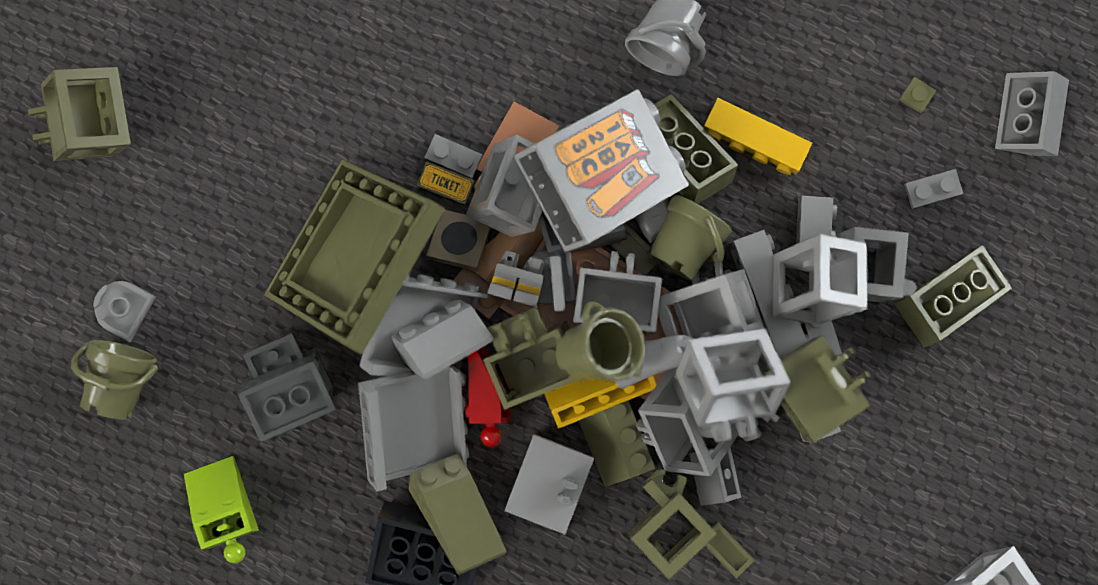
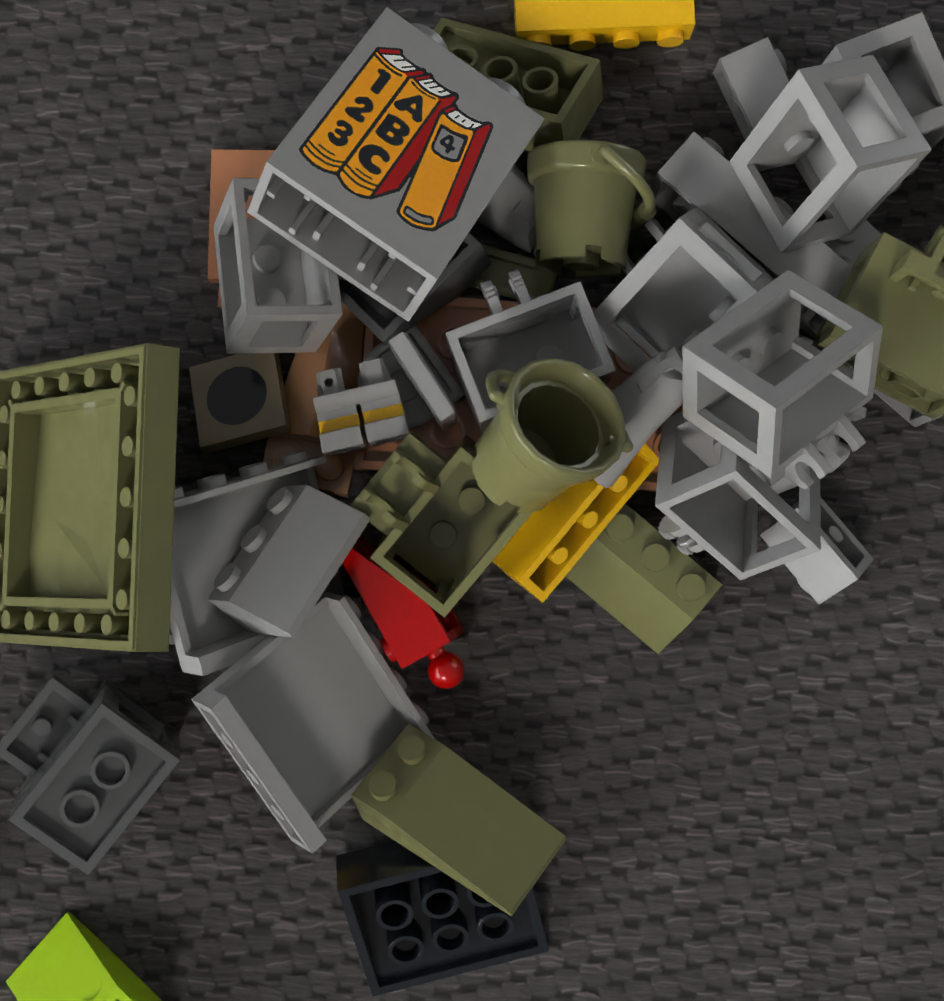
camera: 30 degrees left, 0 degrees up
(445, 183) = (176, 324): tile -> none
(453, 156) = (164, 279): light grey plate -> none
(549, 484) = (575, 696): light grey piece -> none
(668, 502) = (773, 636): olive piece -> none
(729, 551) = (891, 650): olive tile -> none

